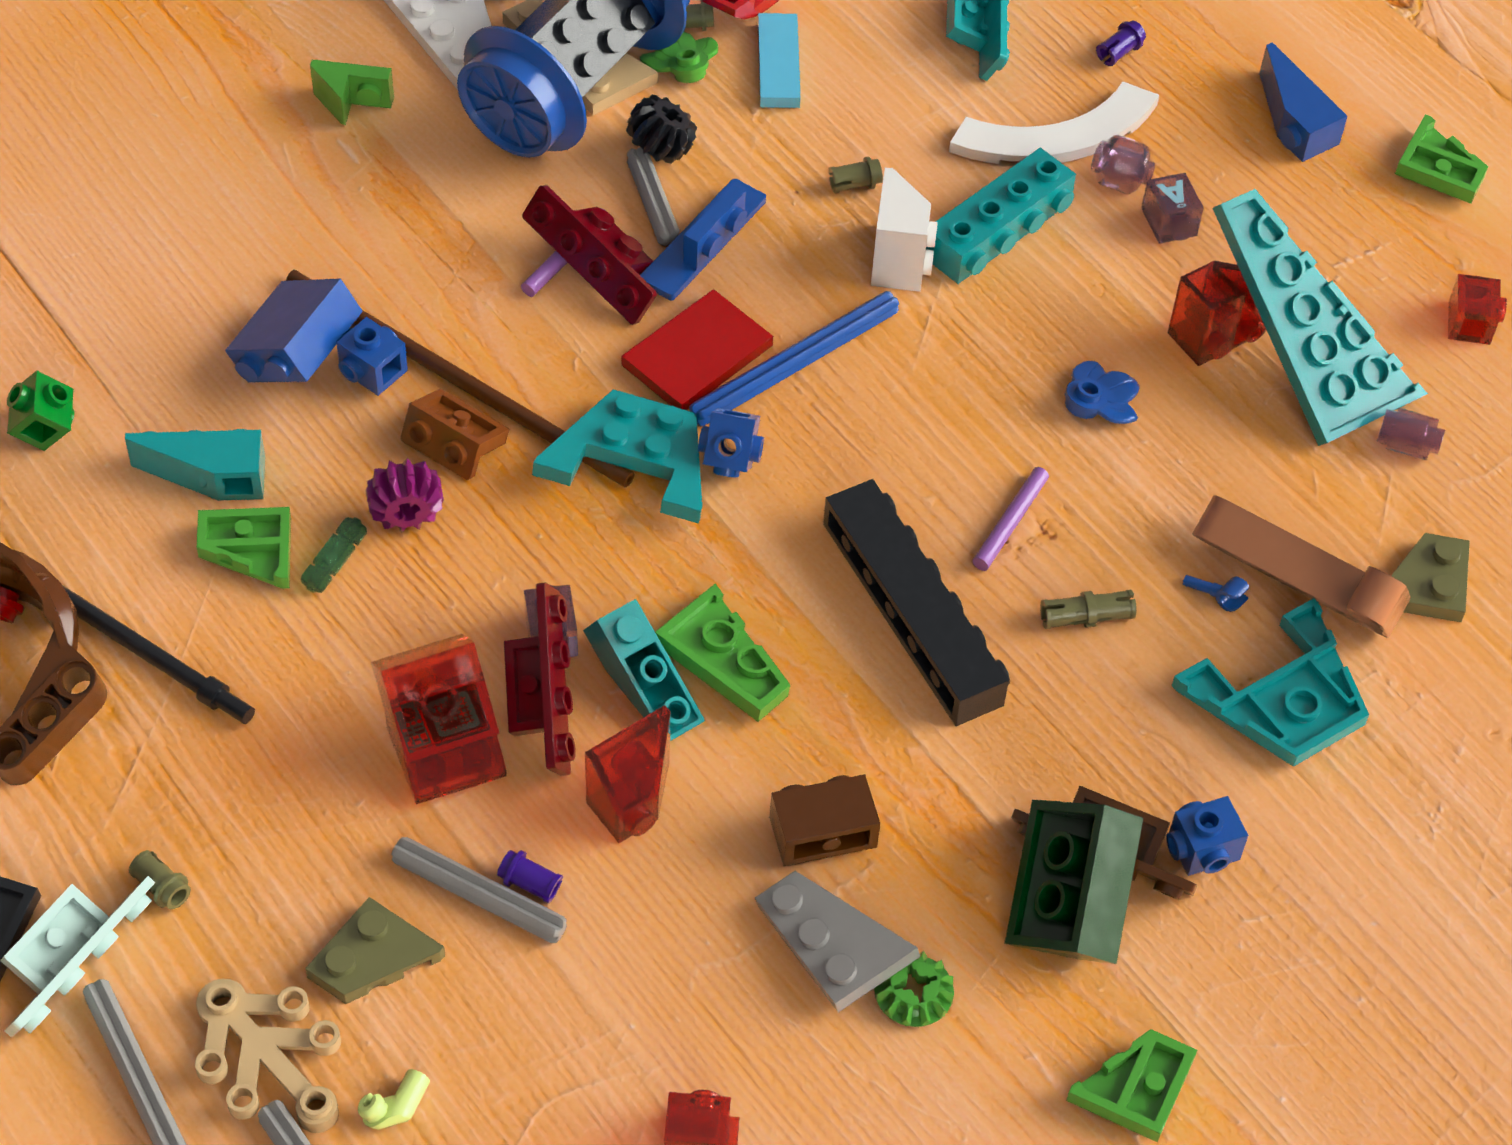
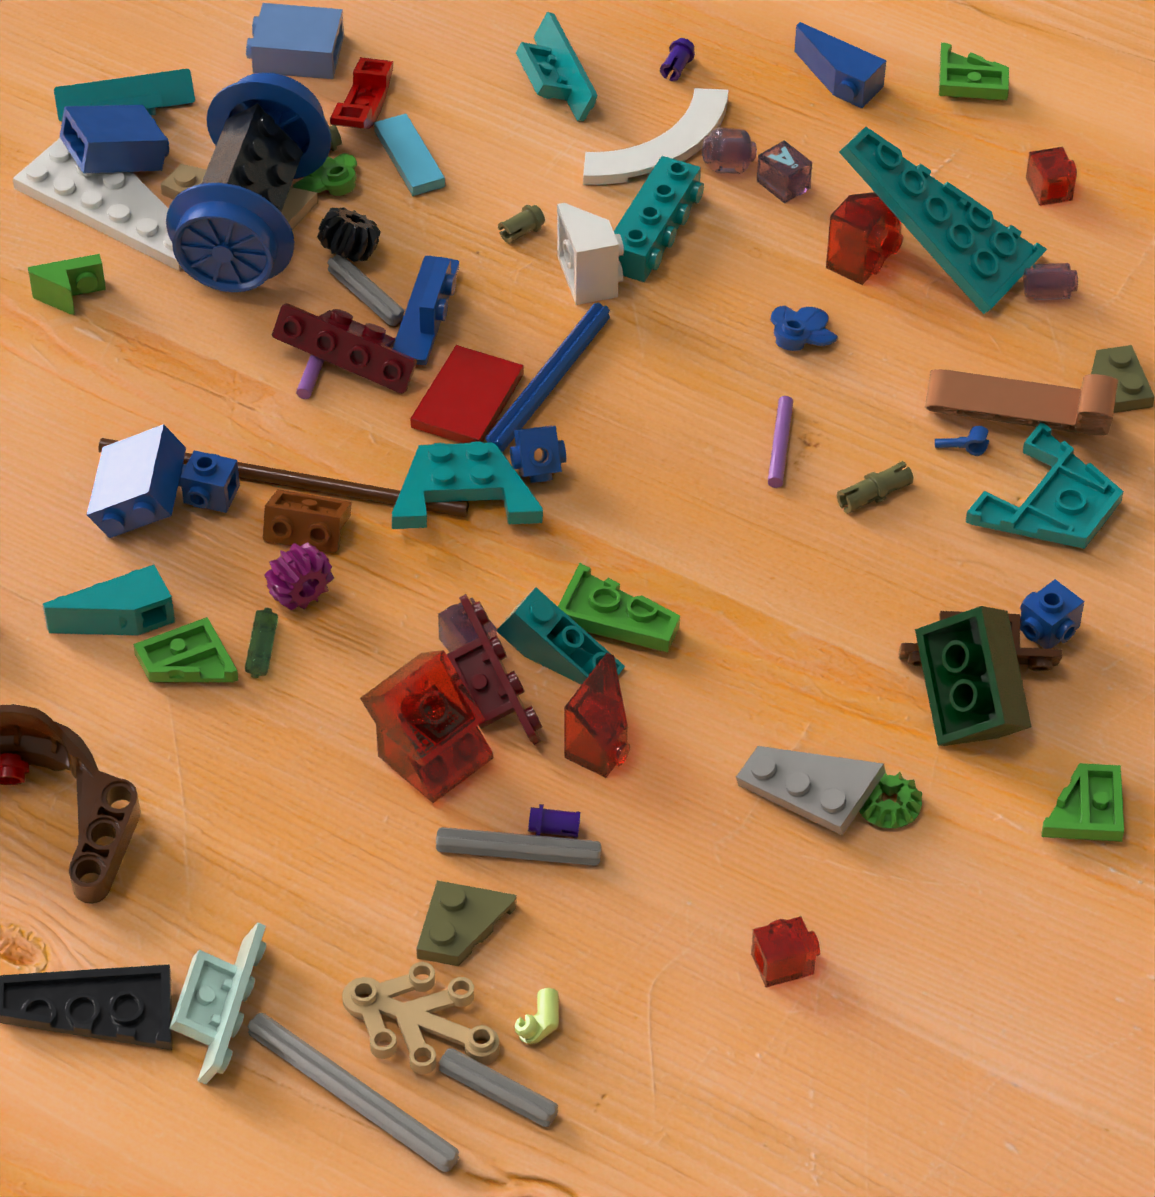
camera: 20 degrees left, 5 degrees down
(169, 888) = (276, 930): olive pin -> none
(208, 689) = (219, 776): black bar -> none
(824, 819) = (761, 701): reddish brown brick -> none
(916, 602) = (742, 524): black brick -> none

